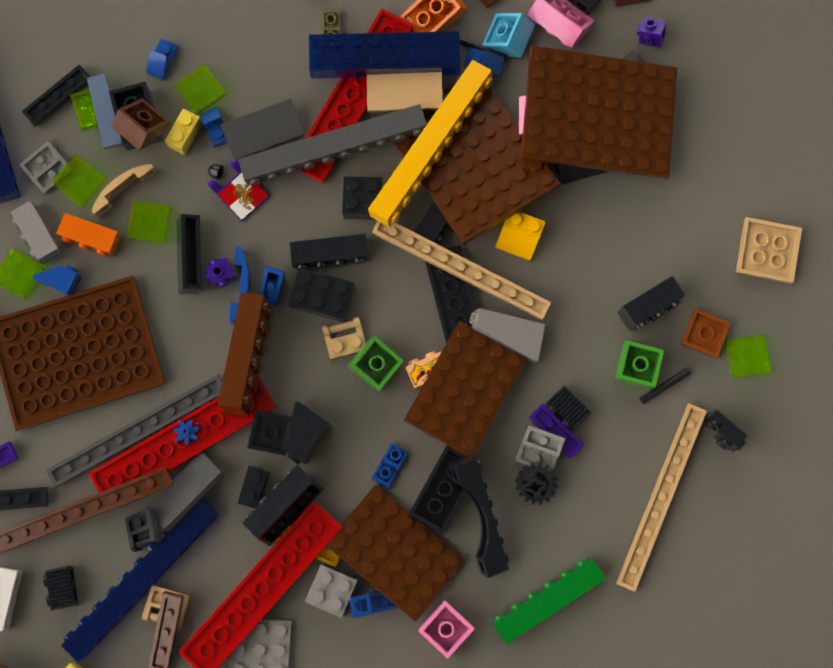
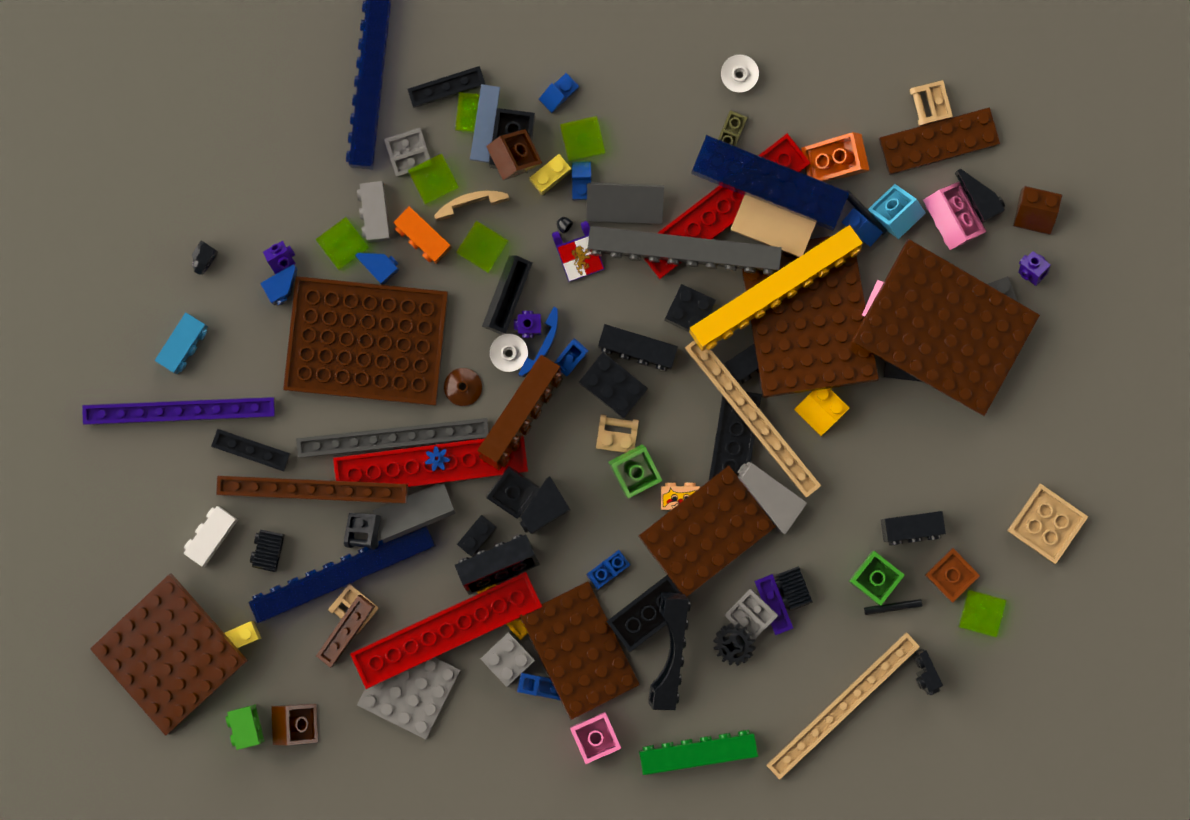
camera: 30 degrees right, 5 degrees up
(193, 358) = (469, 394): none -> reddish brown dish
(211, 297) = (499, 348): none -> white dish

